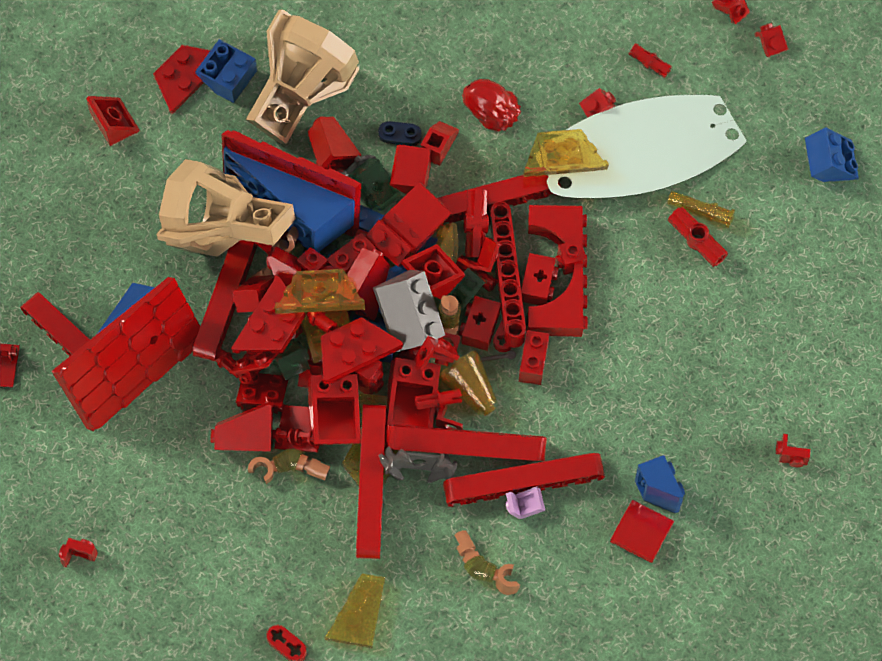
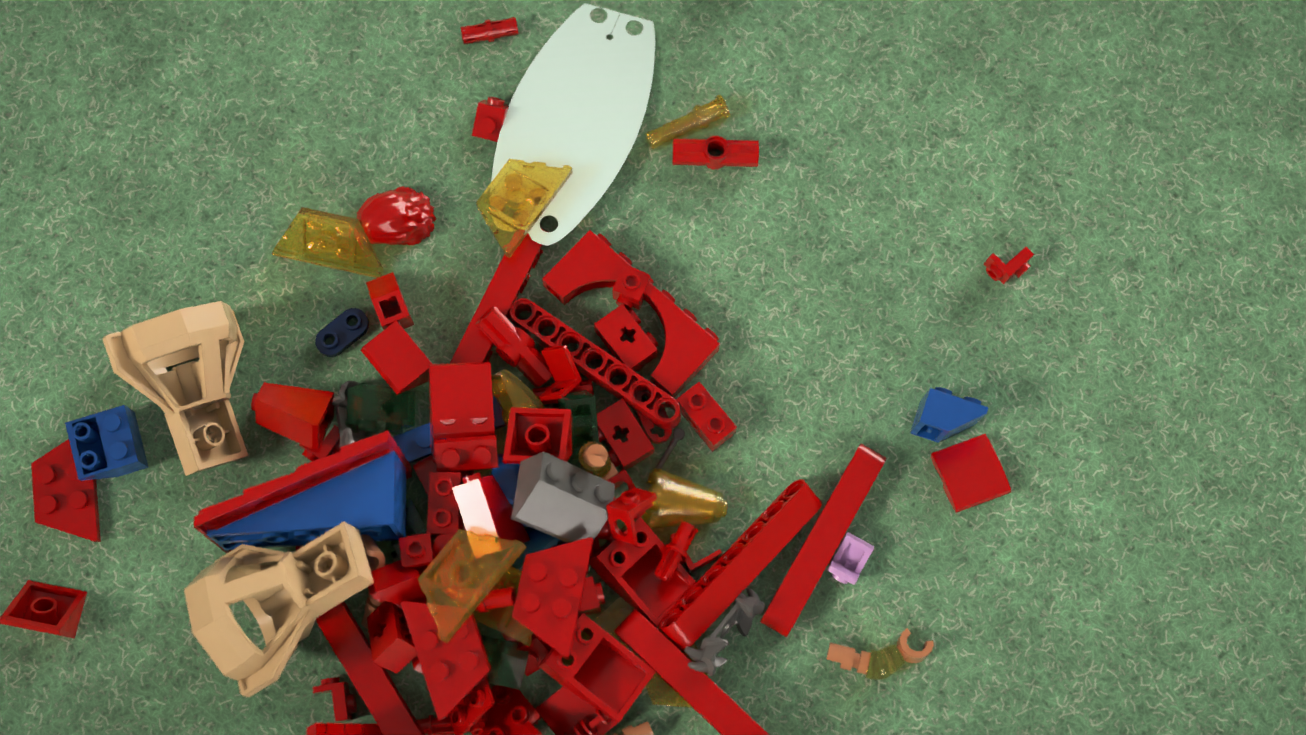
camera: 50 degrees left, 10 degrees up
(200, 298) = (343, 701): none -> red bracket
(443, 82) = (329, 242): none -> clear yellow wing

